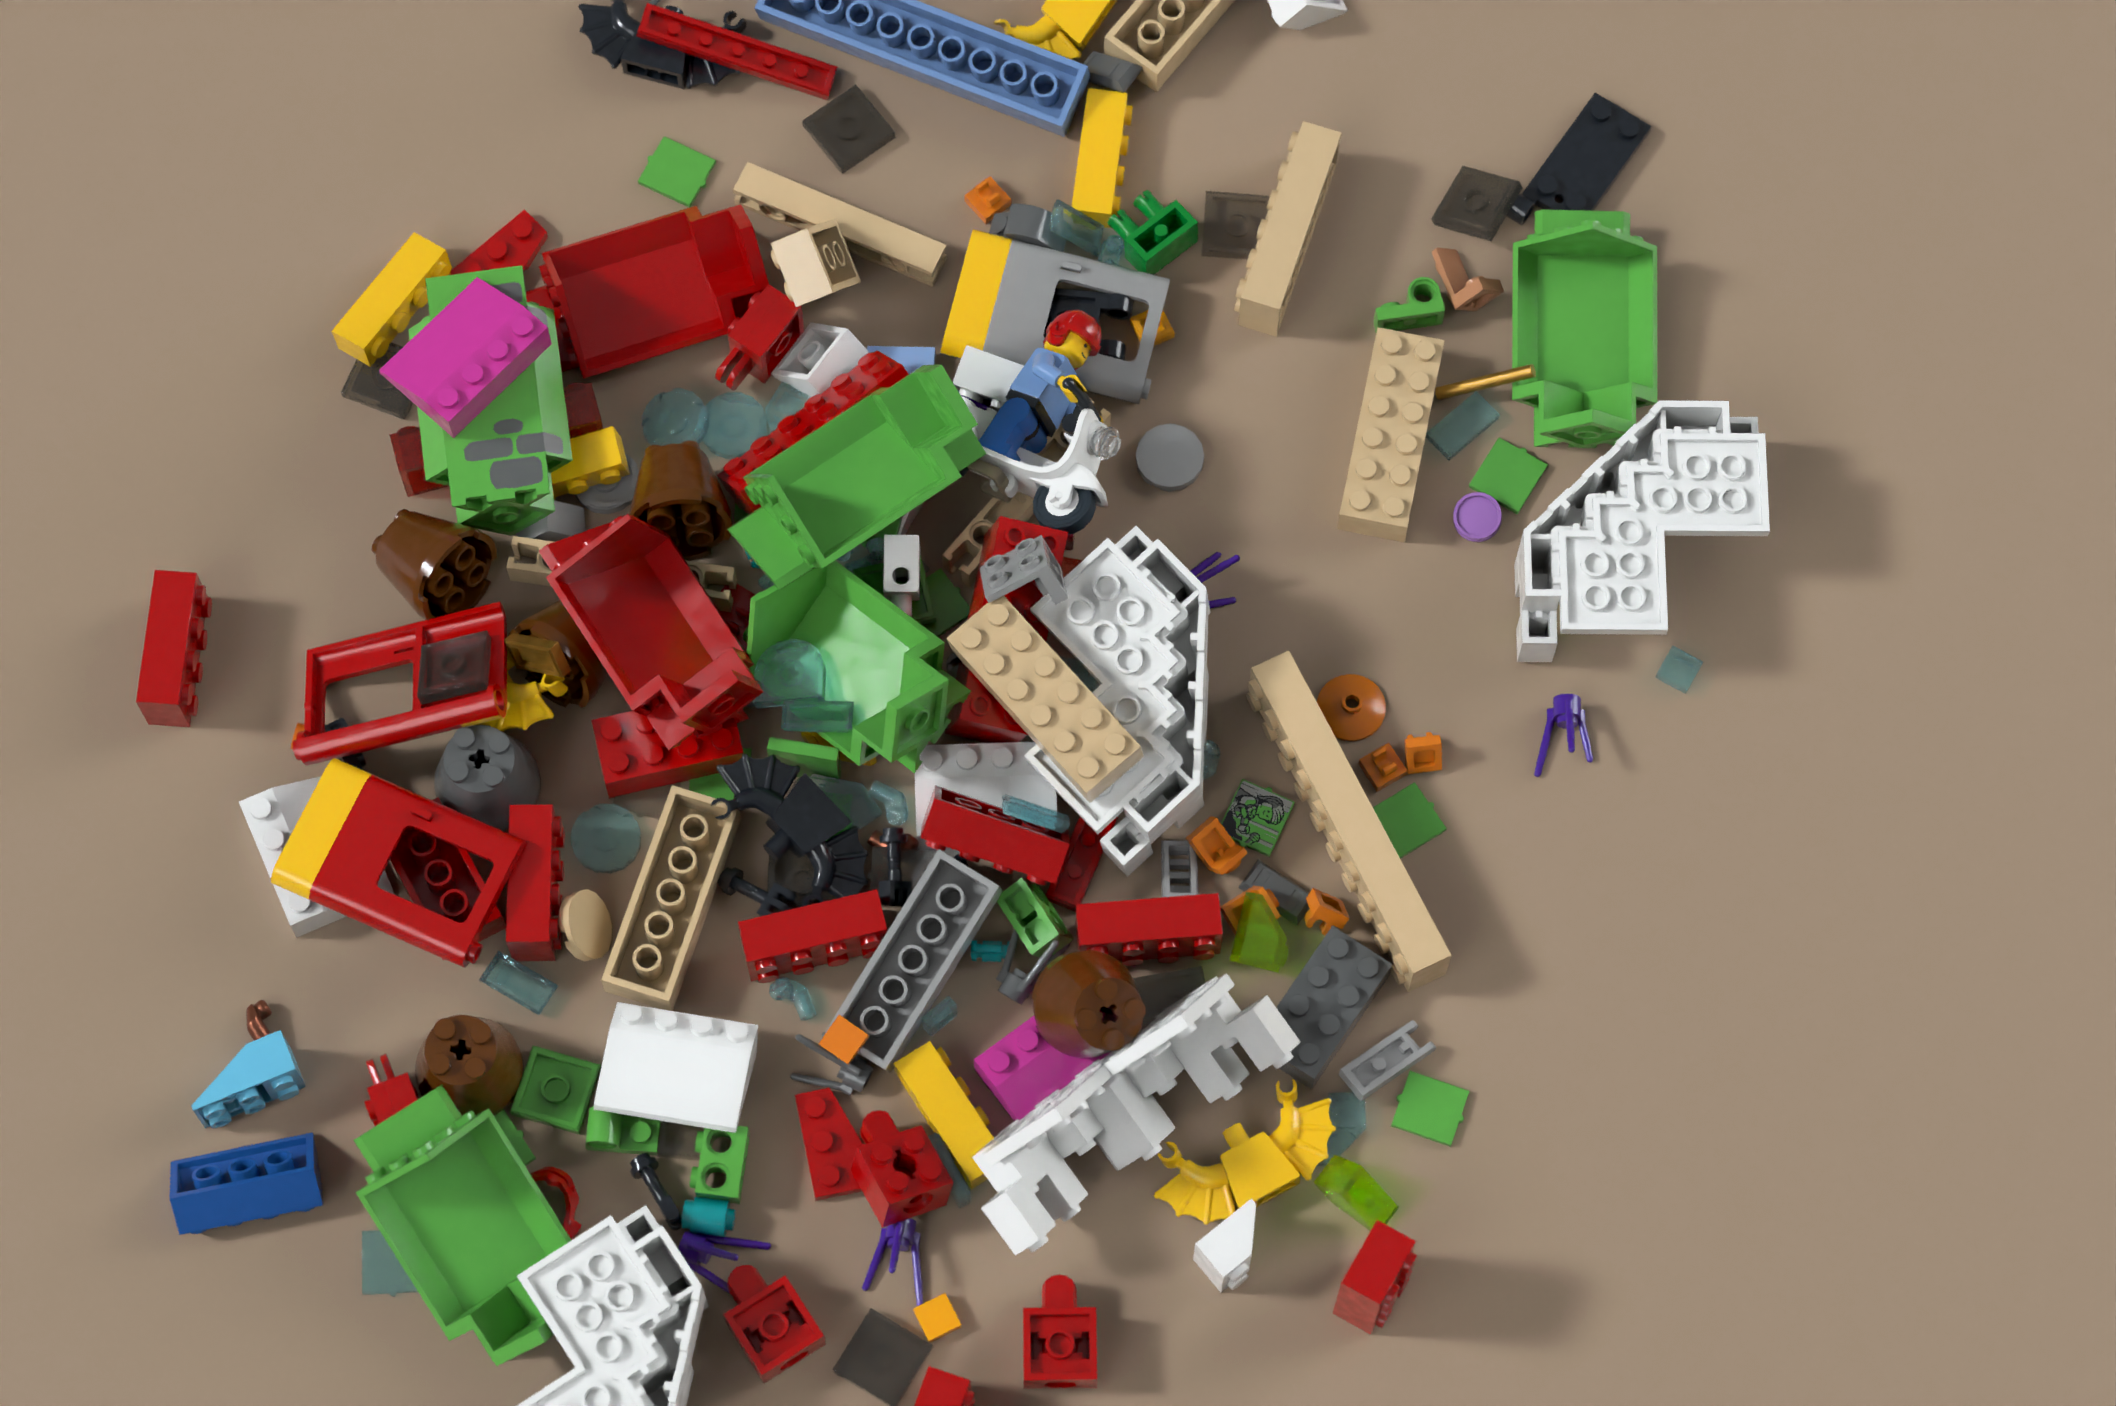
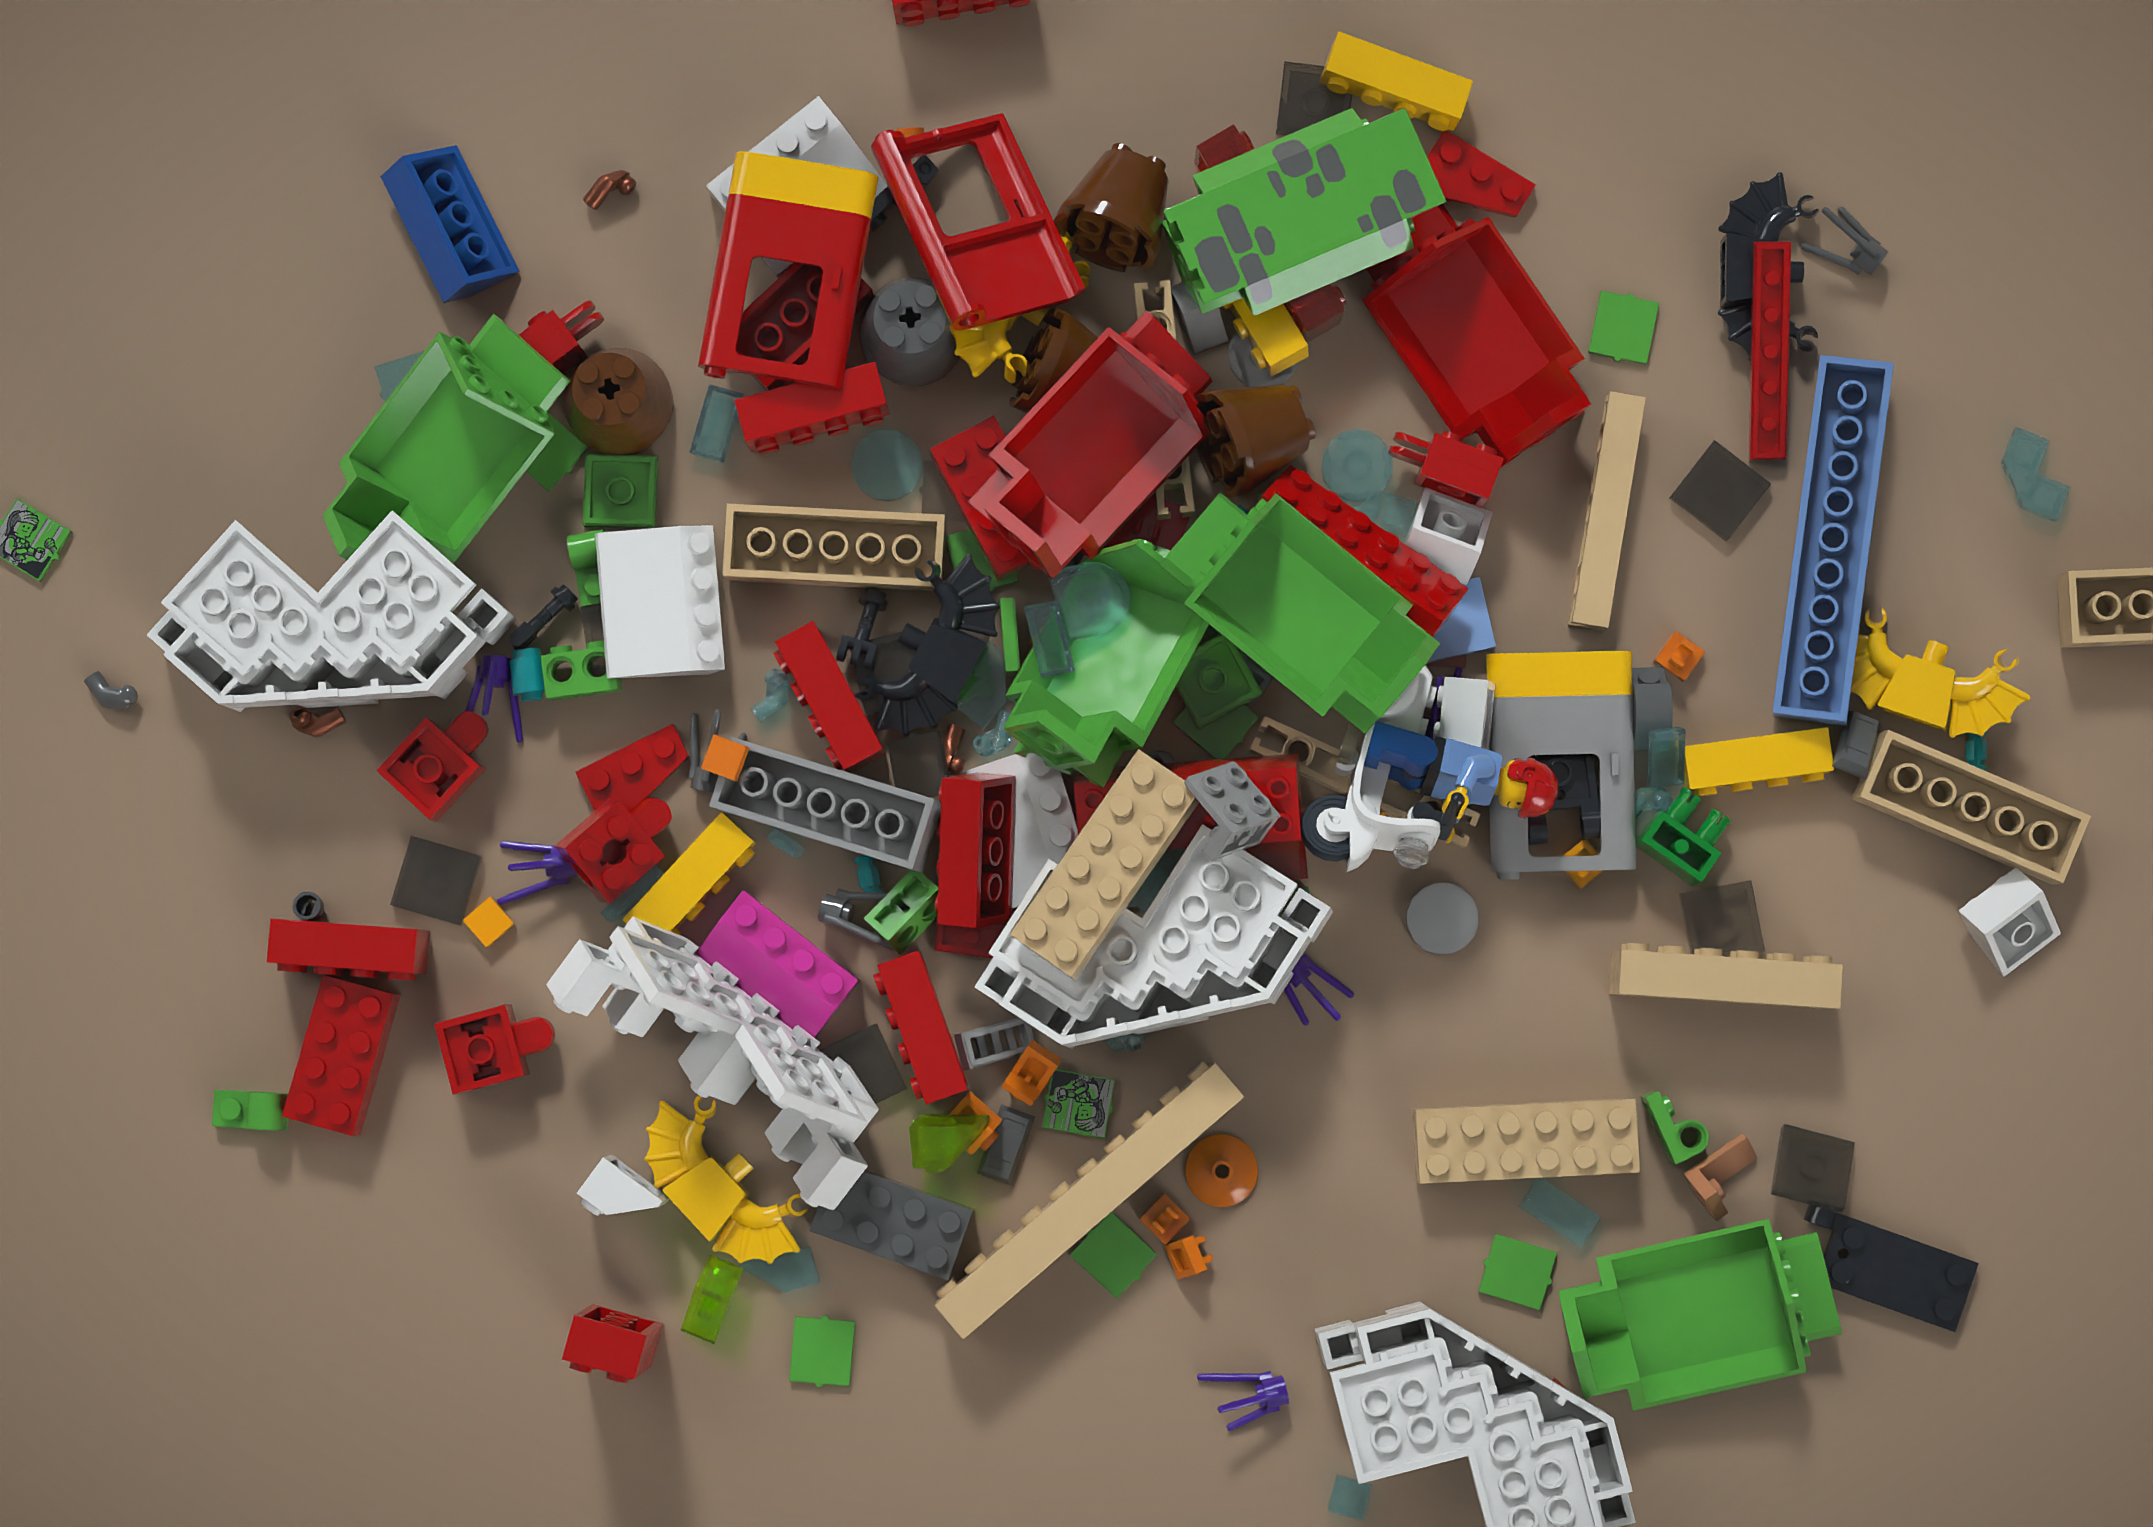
camera: 75 degrees right, 15 degrees up
(253, 1077) = (559, 208): medium azure slope -> none
(454, 667) = (1001, 264): clear smoke tile -> none
(467, 355) = (1327, 174): dark pink slope -> none
(537, 655) = (1035, 342): pearl gold tile -> none
(557, 1177) = (529, 522): red helmet -> none
(586, 925) = (784, 471): tan tile -> none
(675, 418) = (1343, 406): clear light blue tile -> none
(814, 263) = (1541, 499): tan brick -> none
(894, 890) = (900, 767): black hinge -> none
(902, 561) = (1241, 676): white torso -> none
(1035, 813) = (1011, 881): clear light blue tile -> none
(1070, 999) = (815, 992): reddish brown cone -> none
(1325, 908) = (993, 1199): orange tile -> none
(1384, 1062) = (853, 1295): light grey hinge -> none
(1477, 517) = (1460, 1251): medium lavender piece -> none
(1485, 382) = (1608, 1226): pearl gold bar -> none

